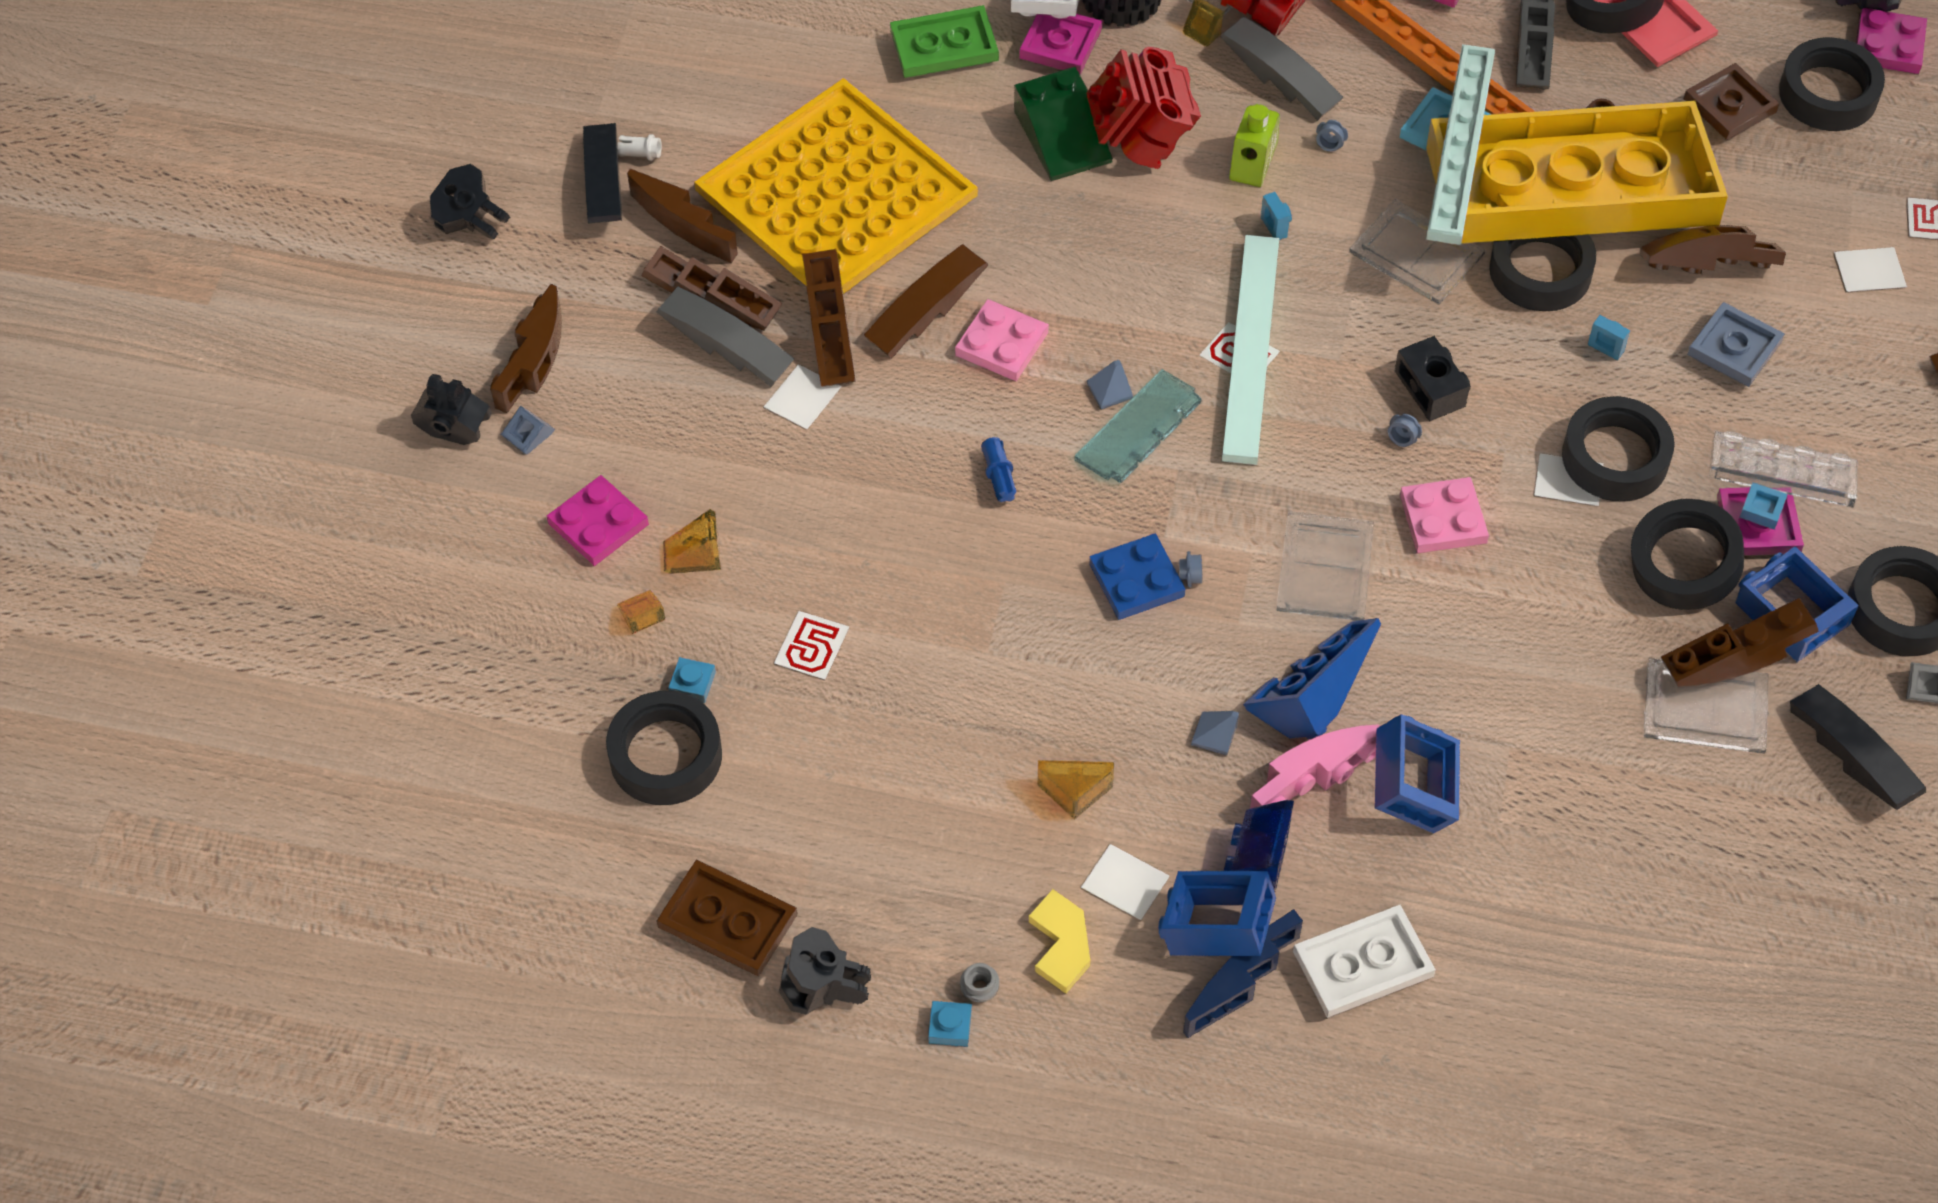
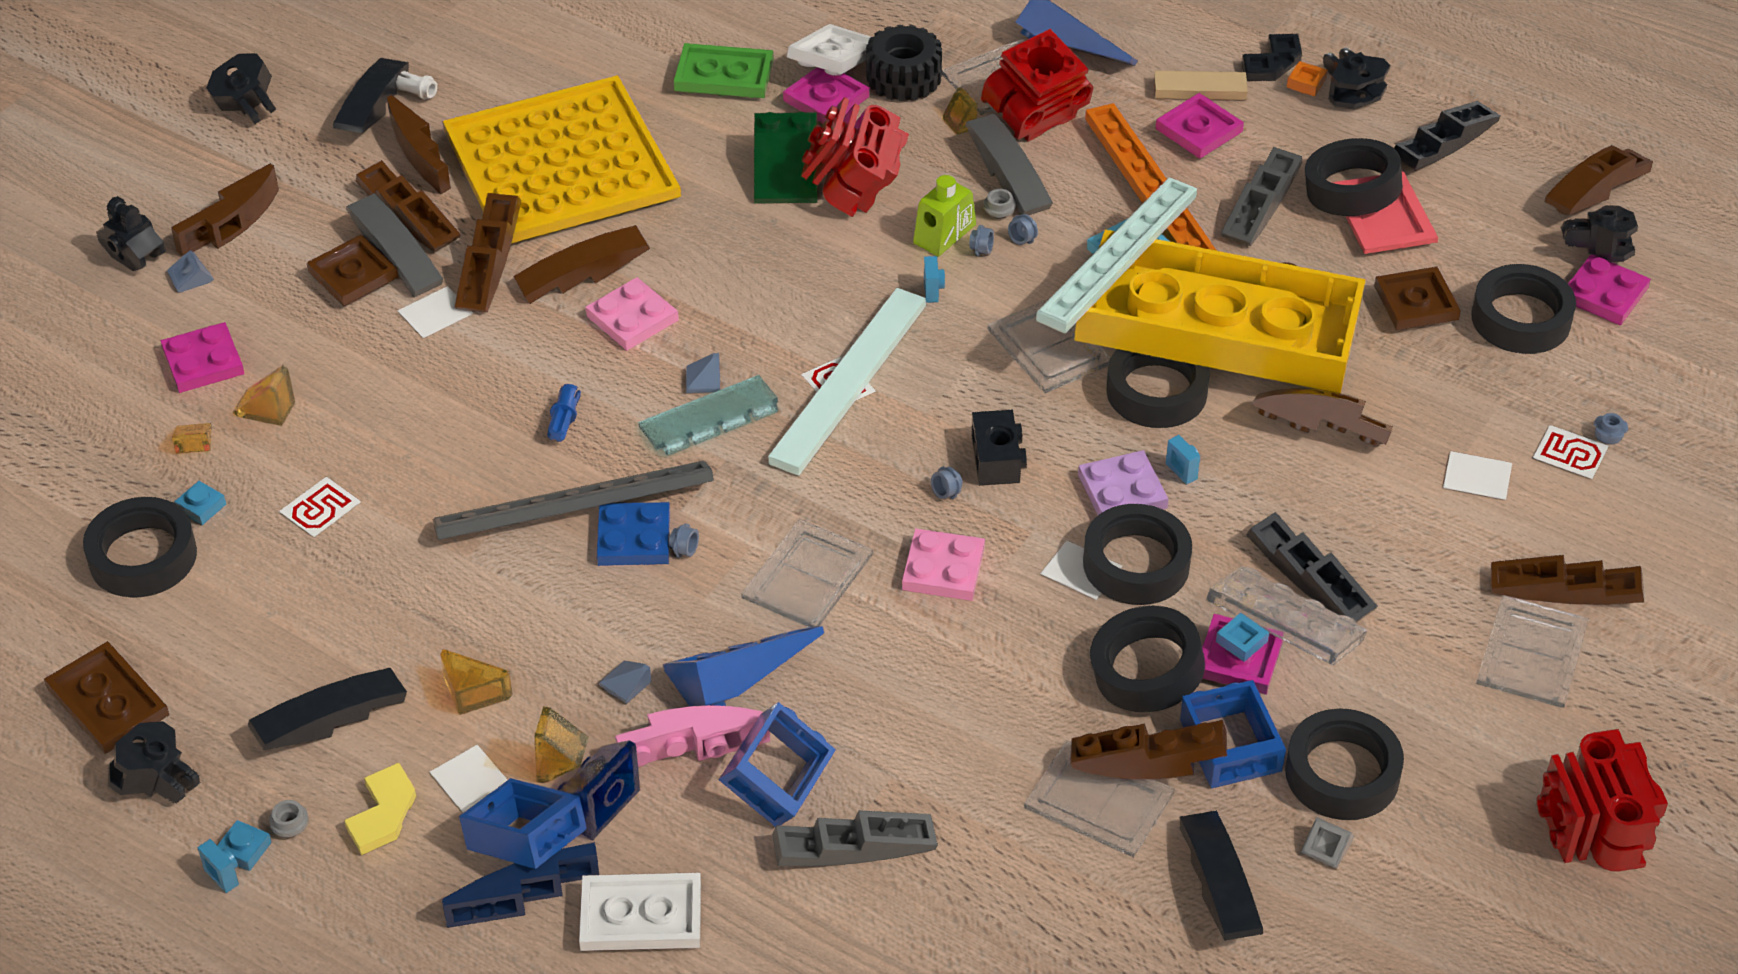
camera: 20 degrees right, 10 degrees down
(697, 377) = (352, 270): none -> reddish brown plate
(944, 1053) = (219, 865): none -> dark azure plate
(953, 857) = (320, 710): none -> black slope
(1060, 561) = (572, 499): none -> dark grey tile
(1204, 826) = (557, 746): none -> clear yellow slope
(1293, 112) = (999, 203): none -> light grey plate
(1298, 158) = (982, 240): none -> sand blue plate
(1516, 823) = (847, 841): none -> dark grey slope
(1563, 381) = (1121, 482): none -> lavender plate
(1736, 344) = (1304, 498): sand blue plate -> none
(1769, 411) = (1305, 566): none -> black slope

